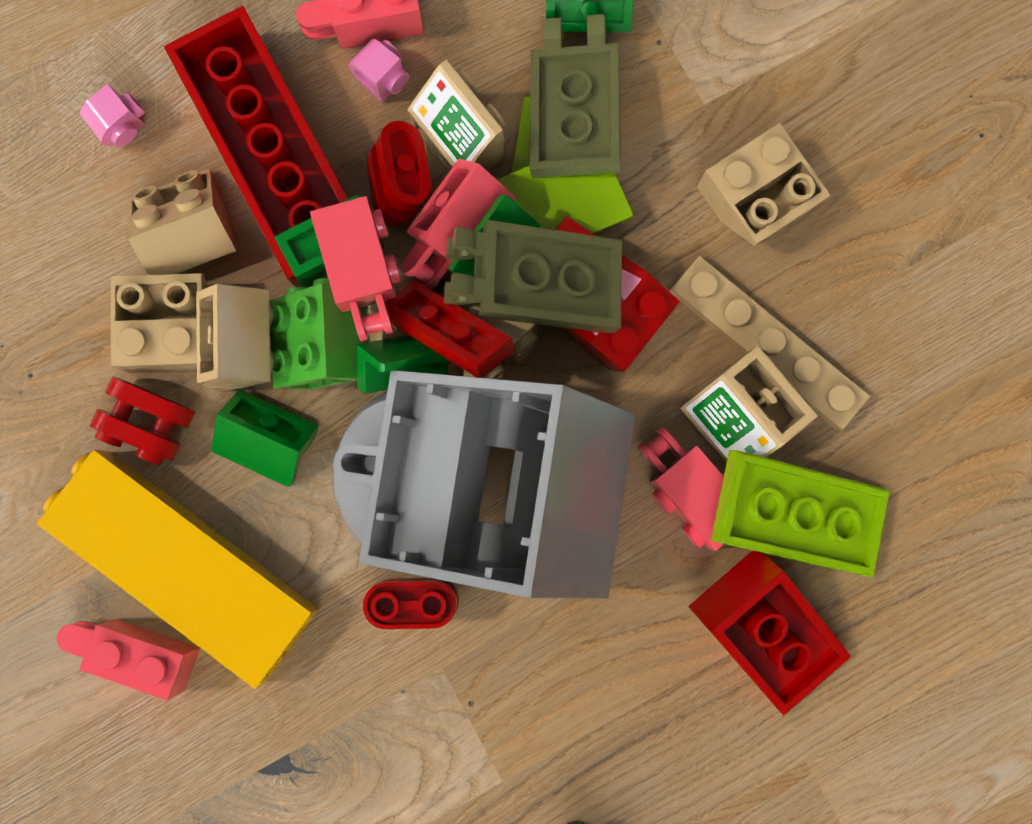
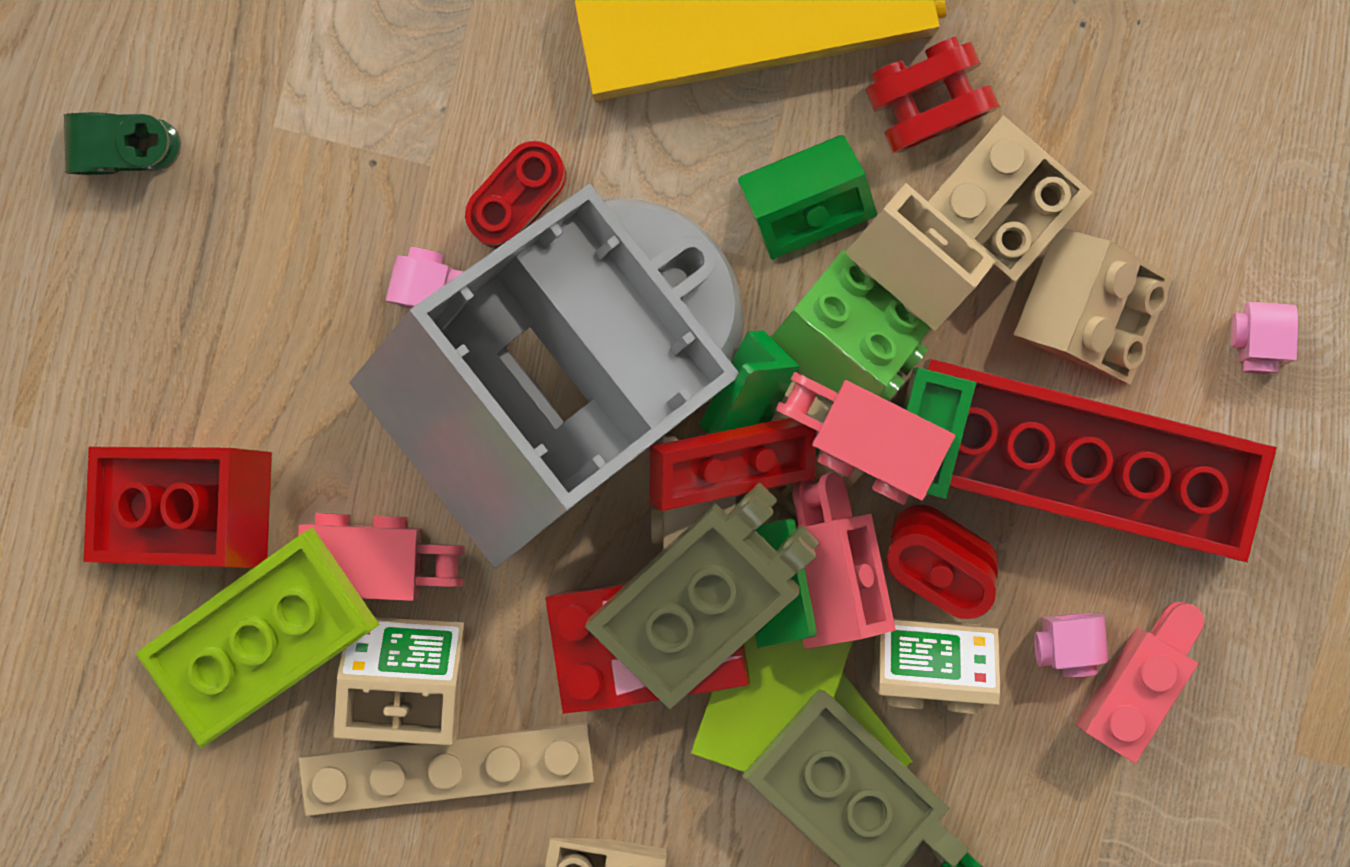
camera: 130 degrees right, 5 degrees up
(510, 614) = (417, 277): none -> bright pink plate

